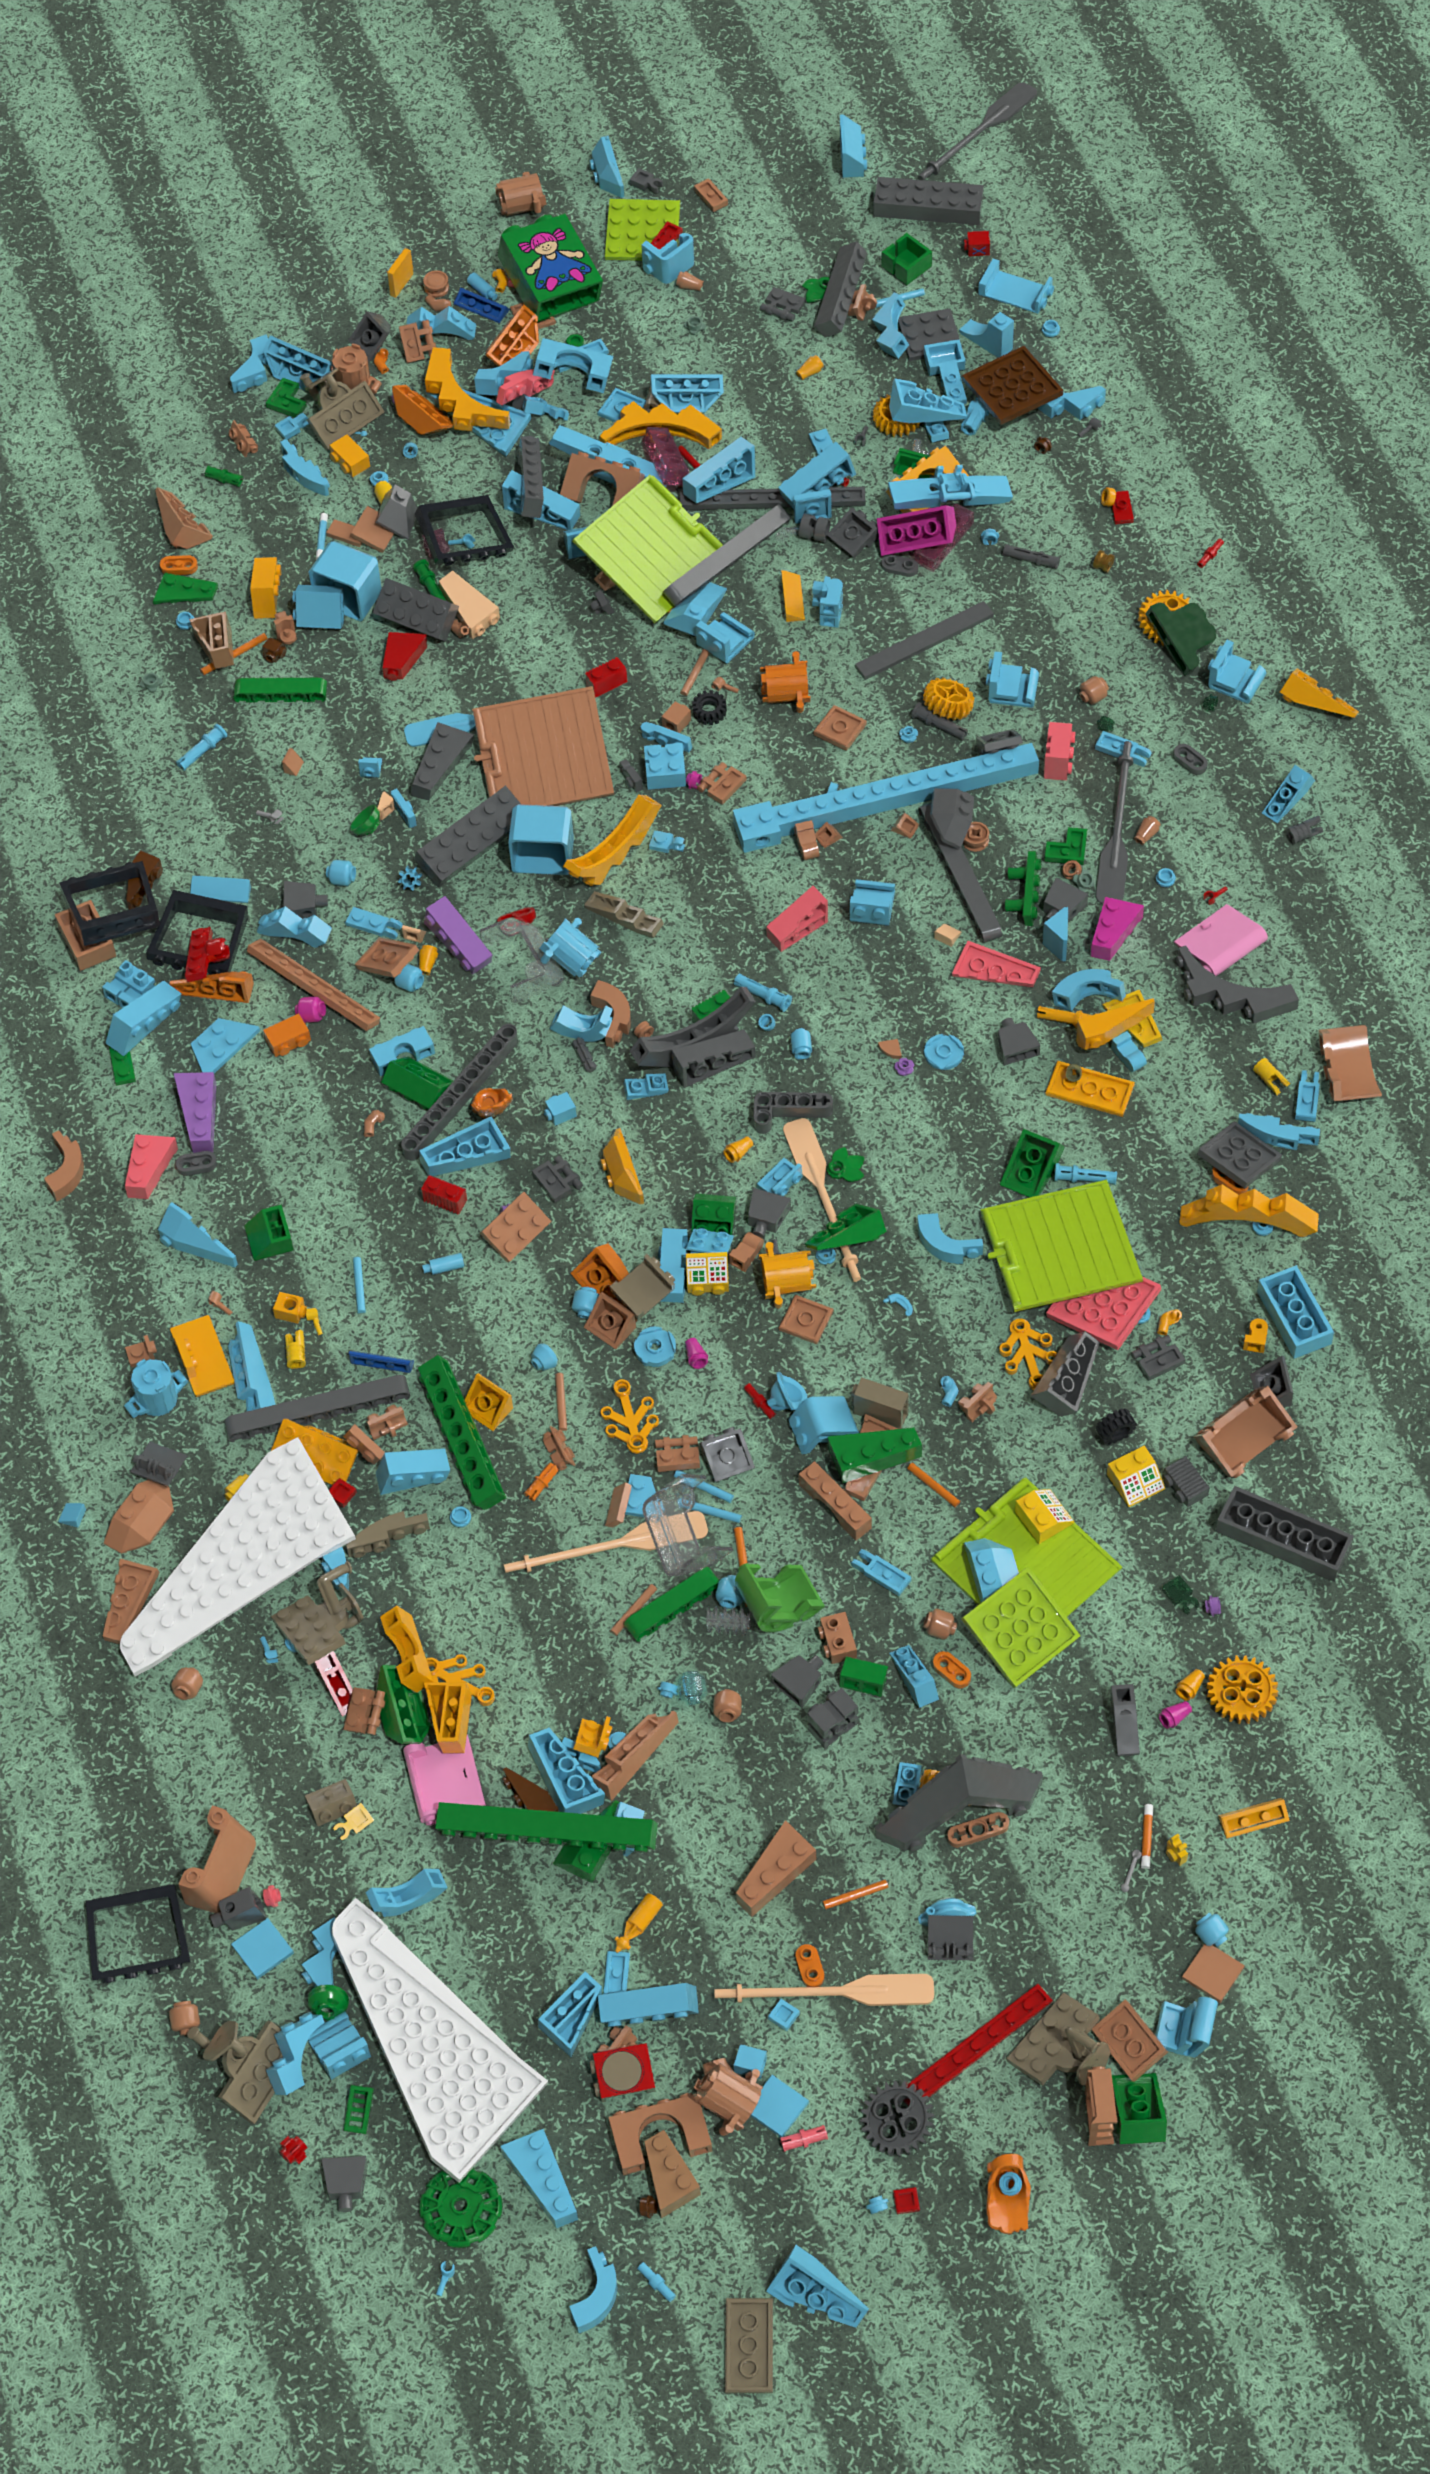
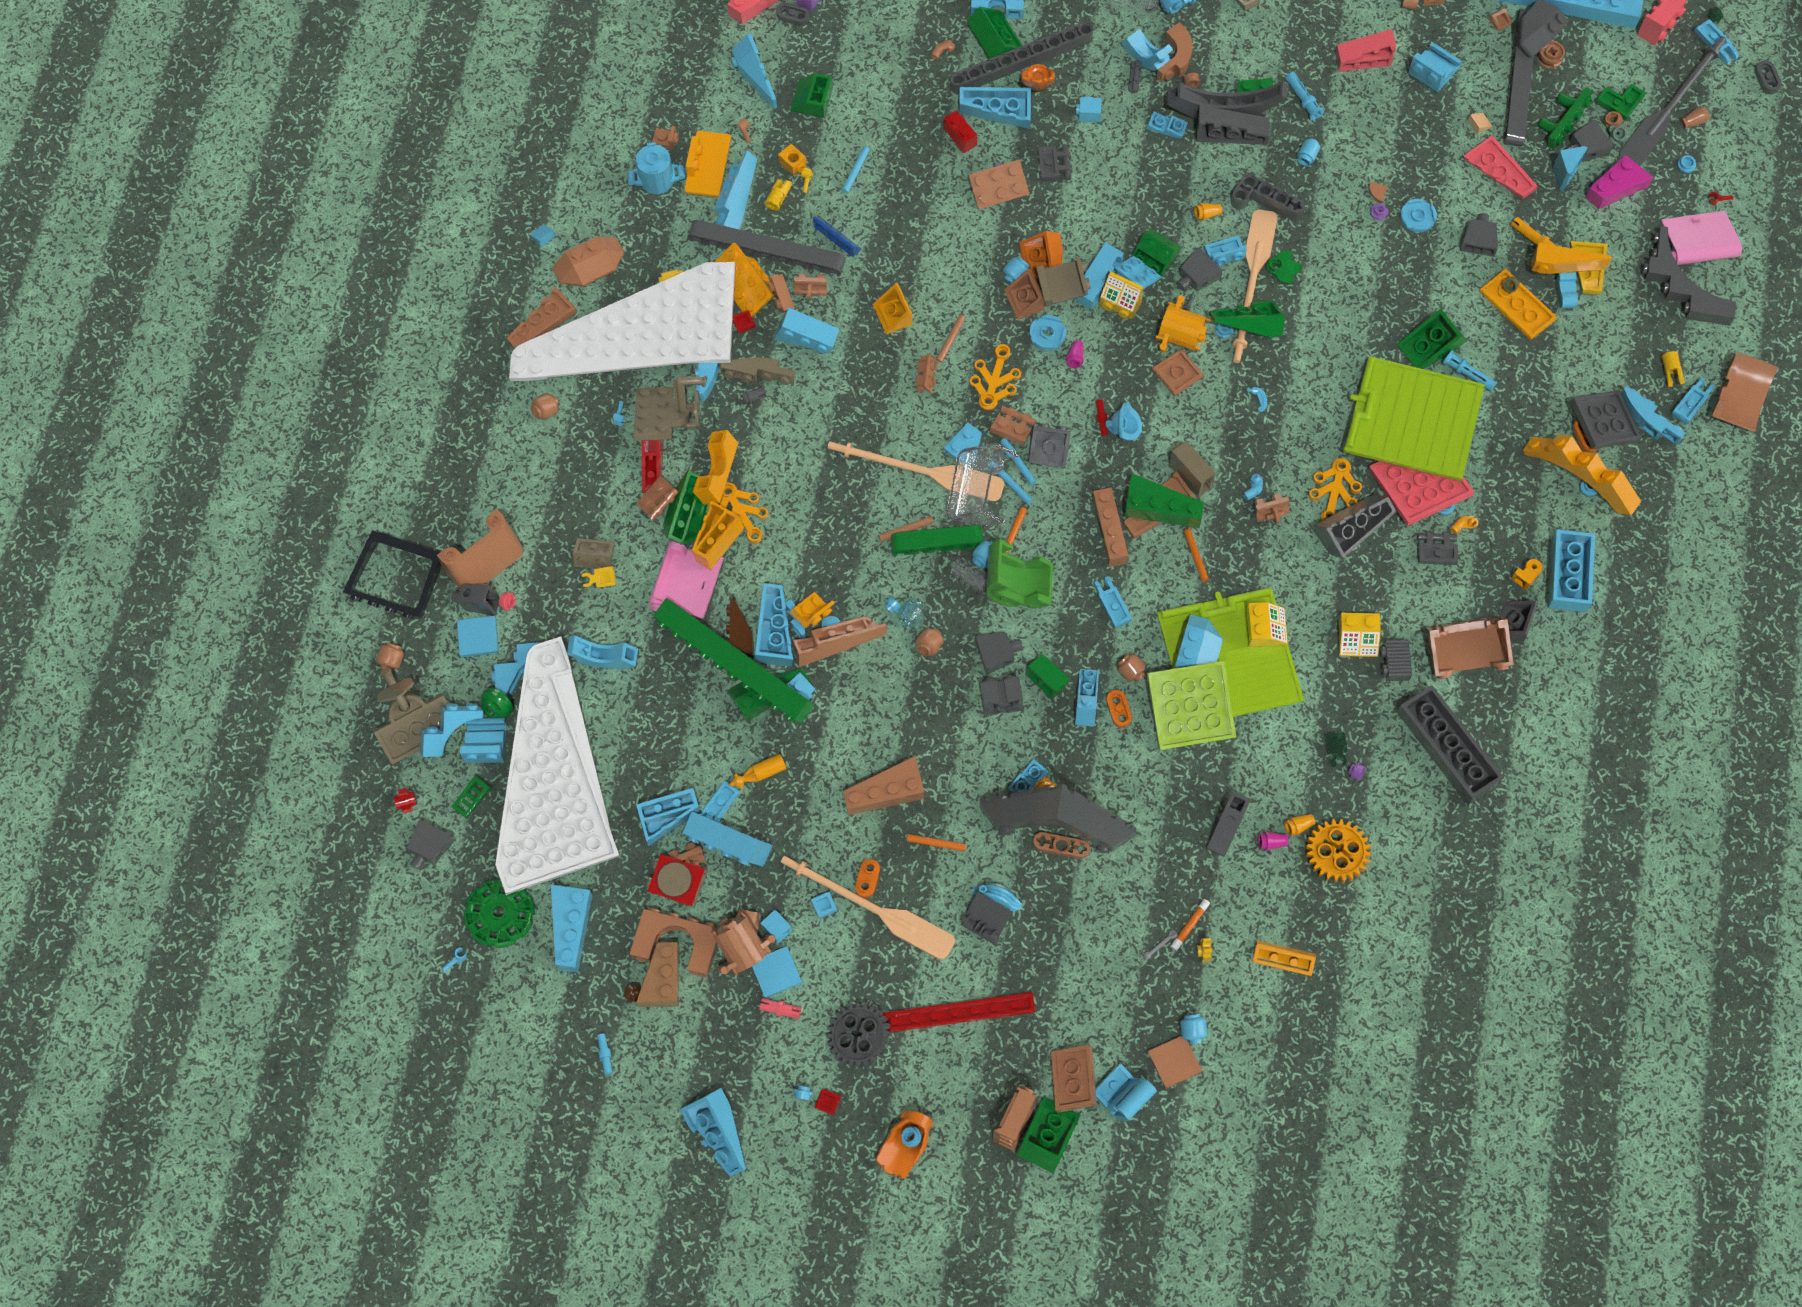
camera: 30 degrees right, 10 degrees up
(158, 1463) = (625, 229): dark grey hinge -> none
(393, 1564) = (753, 395): none -> dark grey pin
(444, 1264) = (928, 186): medium azure cylinder -> none
(460, 1517) = (821, 387): medium azure plate -> none
(462, 1421) = (860, 323): green brick -> none
(541, 1481) = (897, 392): orange axle -> none
(543, 1357) = (957, 297): medium azure cone -> none
(599, 2304) = (552, 1046): medium azure arch -> none
(618, 1505) = (943, 441): nougat tile -> none
(621, 1169) = (1106, 179): light orange wedge -> none
(746, 1251) = (1163, 294): nougat leg -> none
(749, 2345) = (642, 1143): dark tan tile -> none
(764, 1020) = (1290, 119): medium azure hinge -> none
(821, 1418) = (1139, 457): medium azure piece -> none
(838, 1637) = (1046, 635): nougat brick -> none
(942, 1246) = (1319, 369): medium azure arch -> none
(1057, 2040) = (1018, 1047): dark tan plate -> none
(1084, 984) = (1564, 217): medium azure arch -> none
(1116, 1426) = (1367, 586): black tyre -> none

